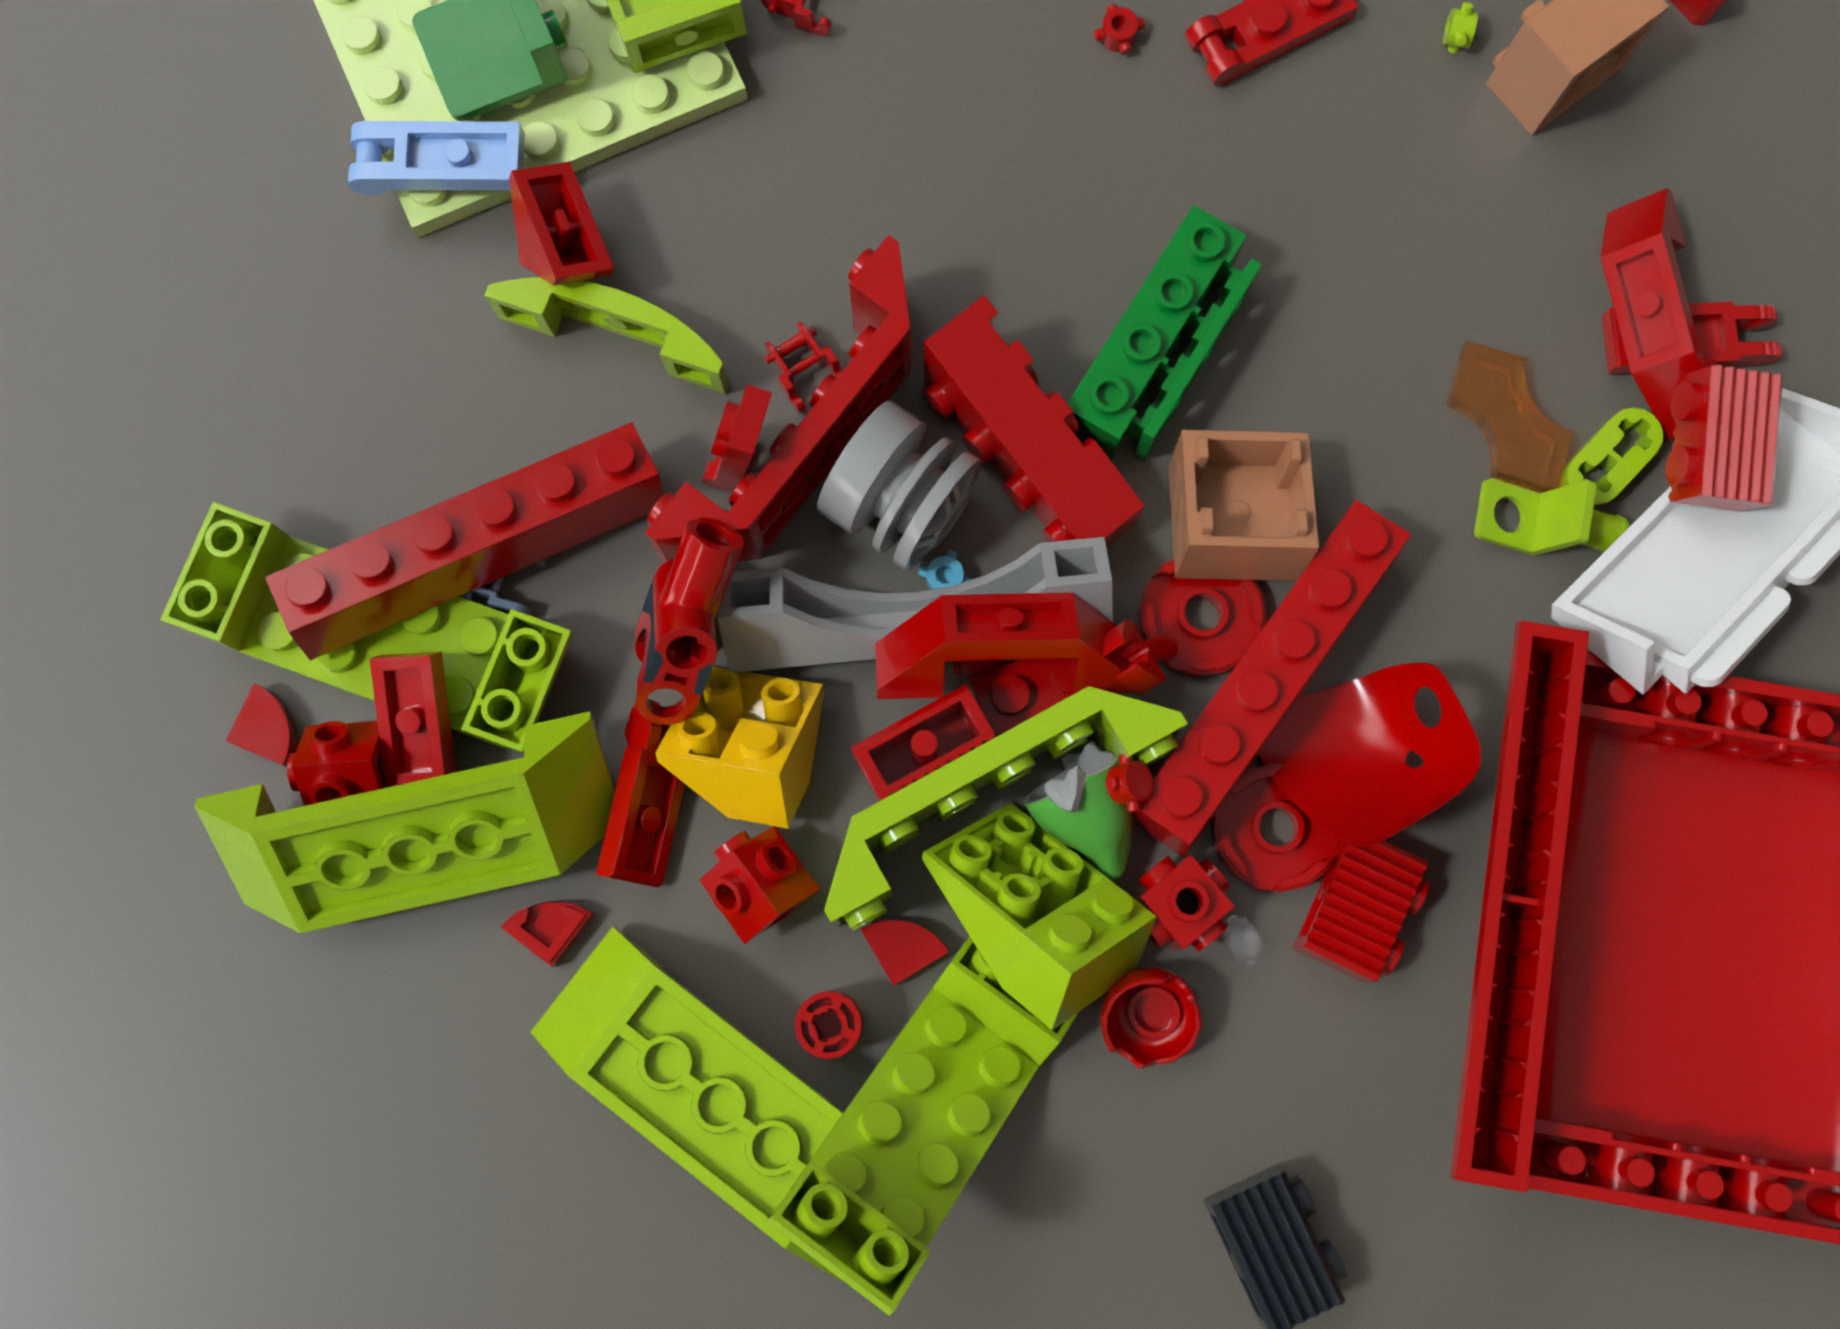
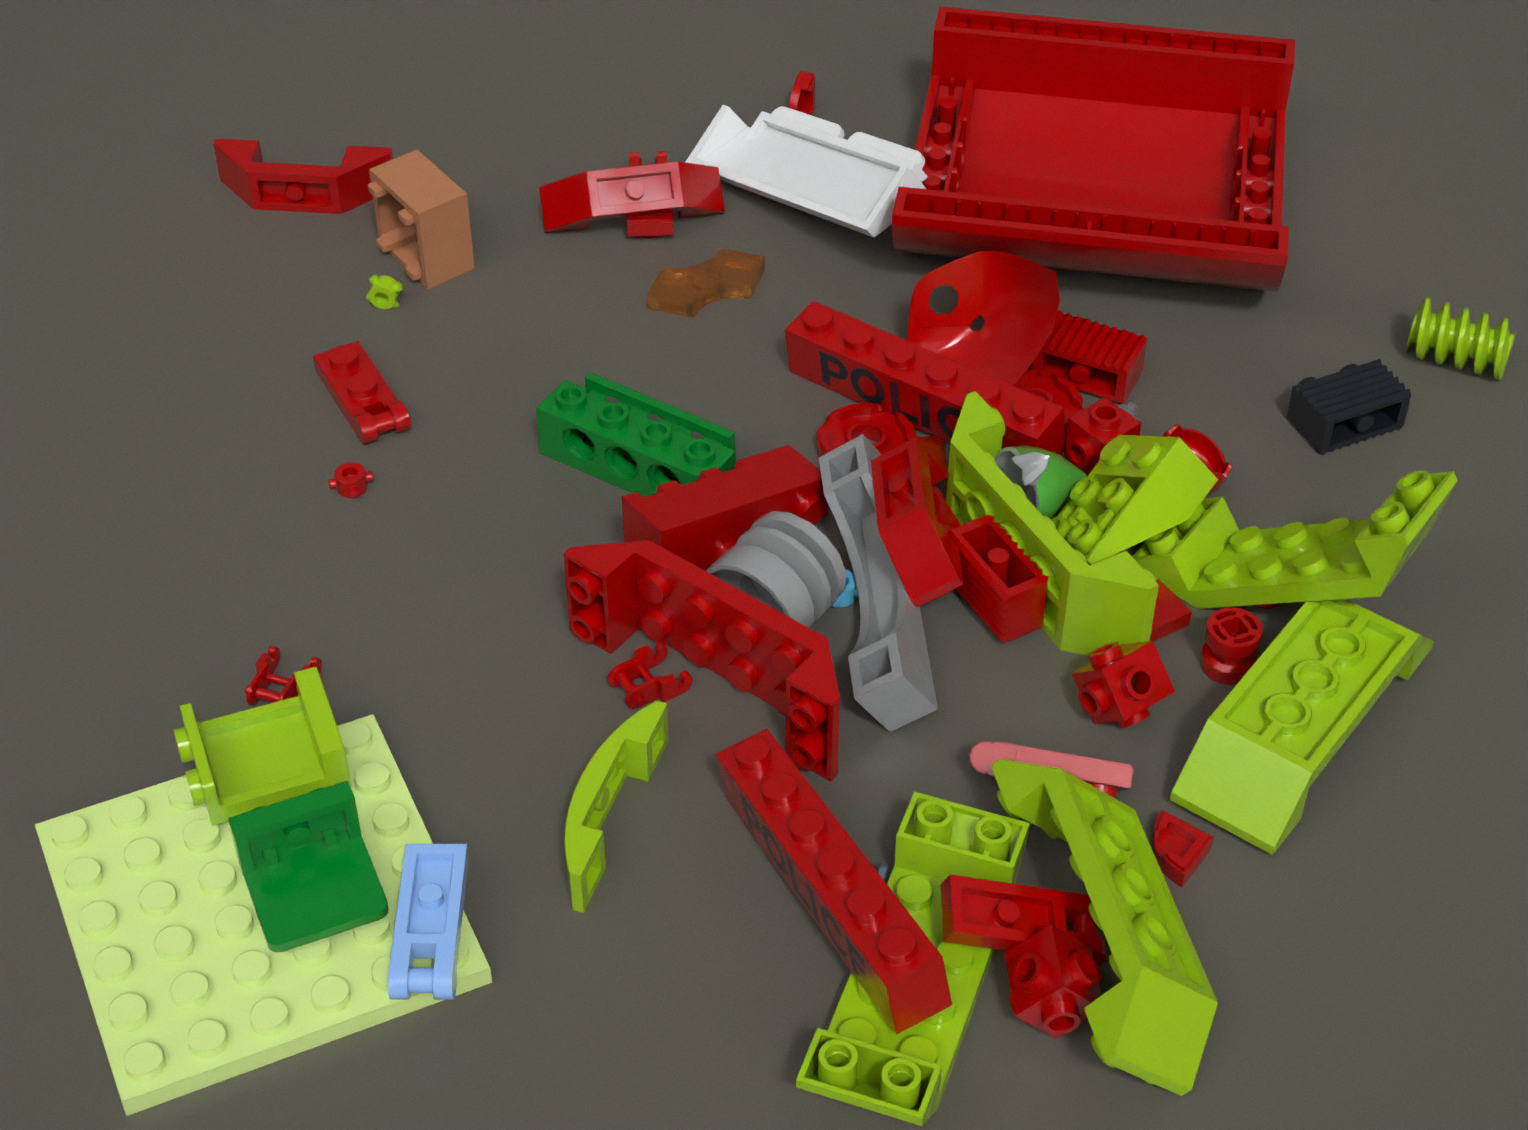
camera: 90 degrees left, 35 degrees down
(264, 727) = (1013, 1076): red tile -> none
(556, 226) = (520, 824): red slope -> none
(678, 618) = (902, 699): red connector -> none
(736, 439) = (738, 667): red plate -> none
(748, 745) = (999, 688): yellow slope -> none
(1129, 783) = (1021, 435): red piece -> none
(1142, 655) = (928, 427): red bar -> none
(1242, 505) = (785, 397): nougat container -> none
(1548, 519) = (788, 257): lime bracket -> none
(1618, 468) = (738, 231): lime beam -> none
(1725, 438) = (743, 151): red brick -> none

